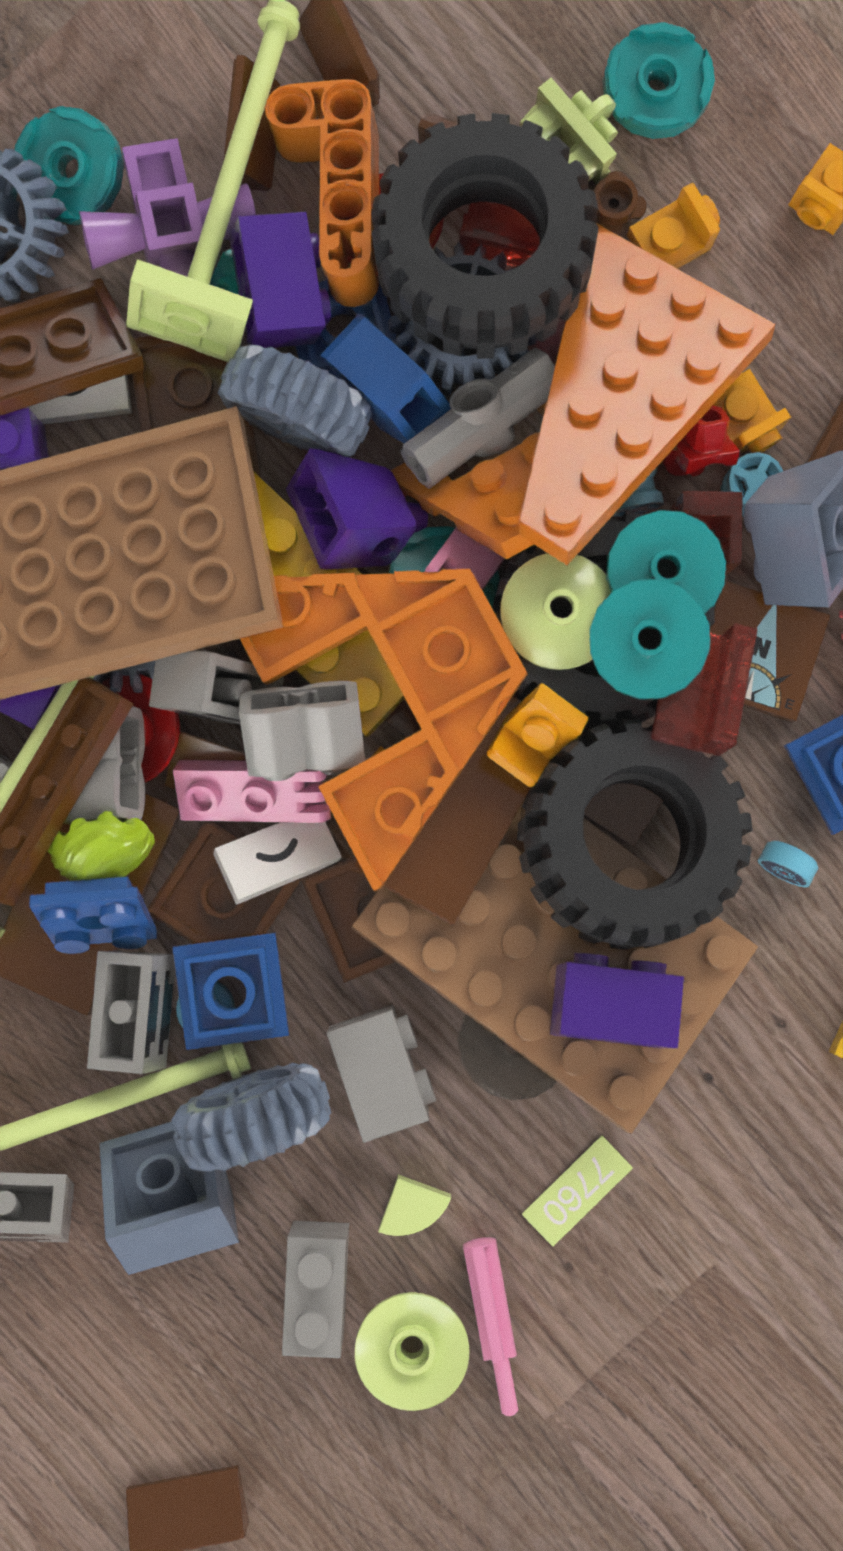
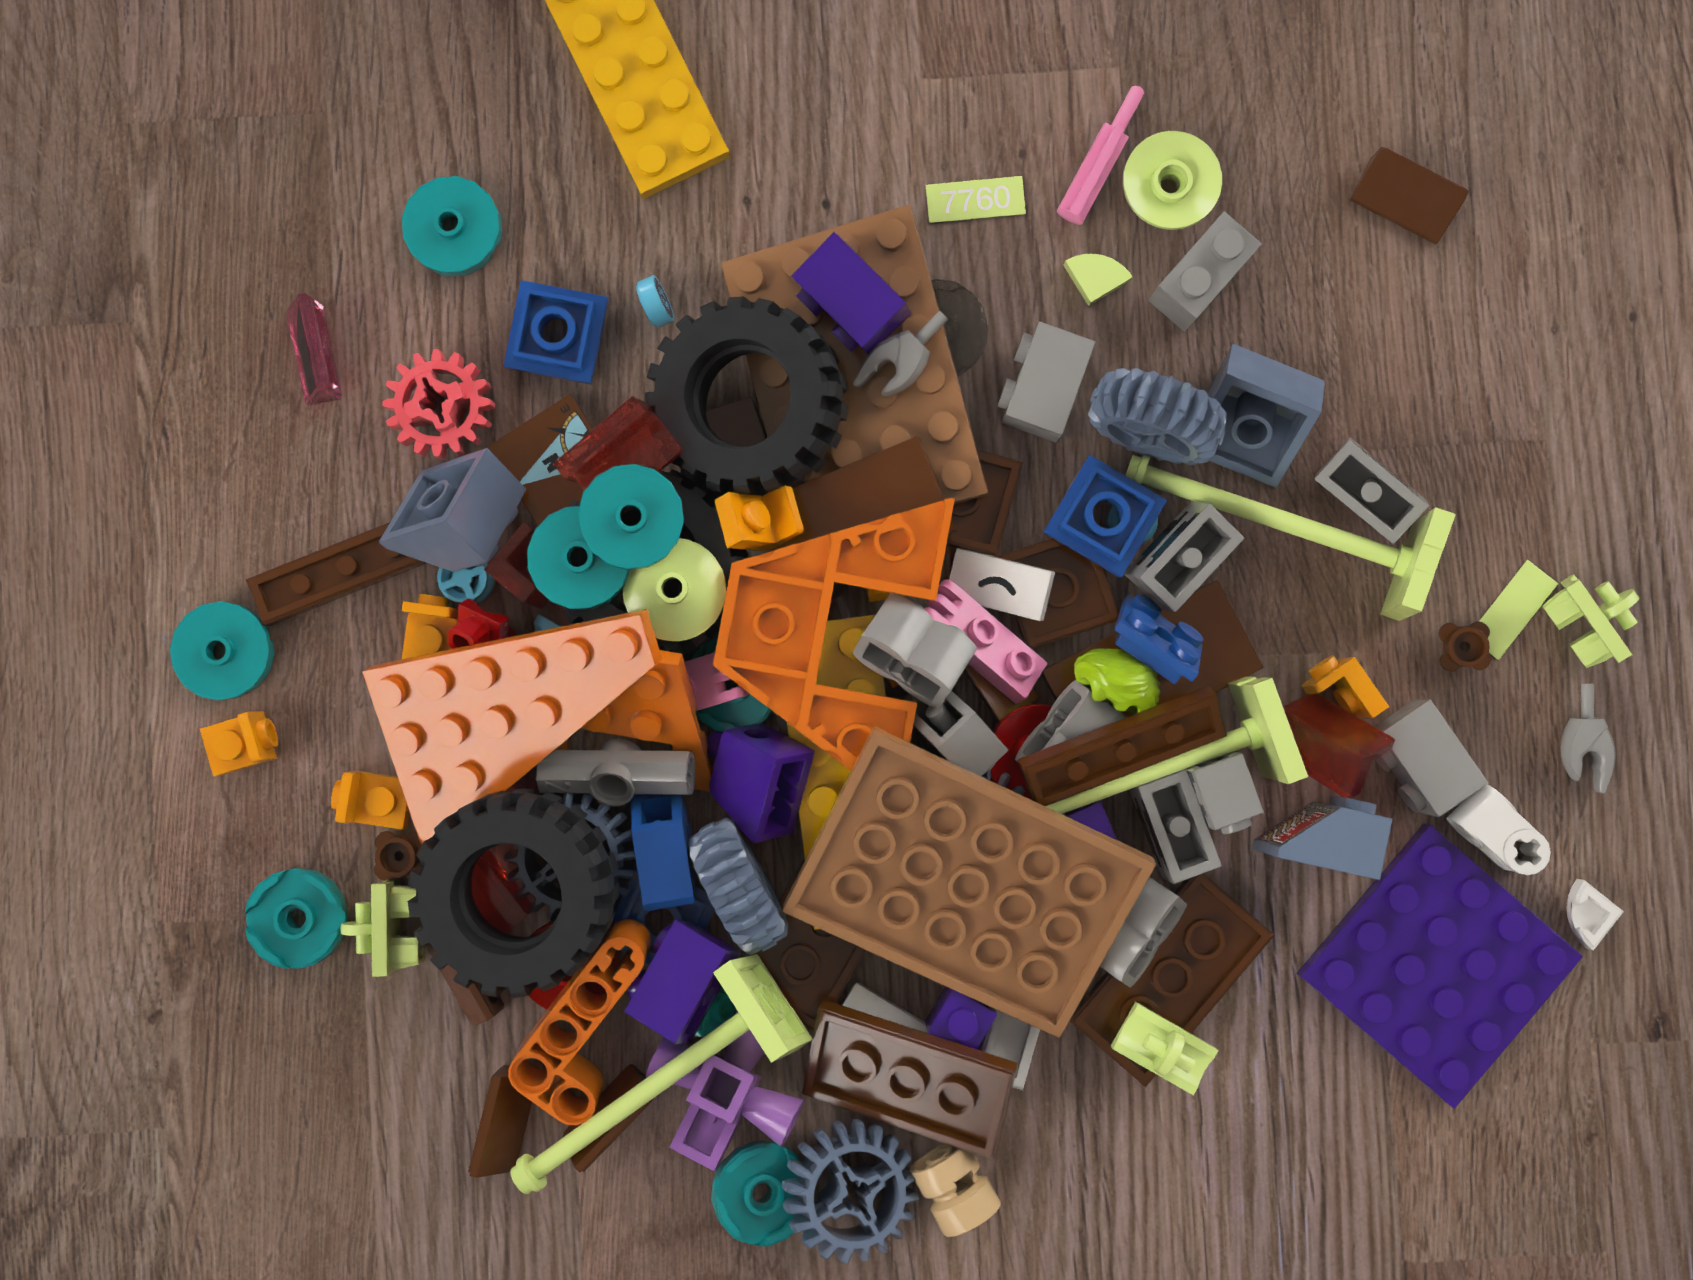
camera: 145 degrees left, 0 degrees up
(526, 992) = (906, 353): none -> light grey hand

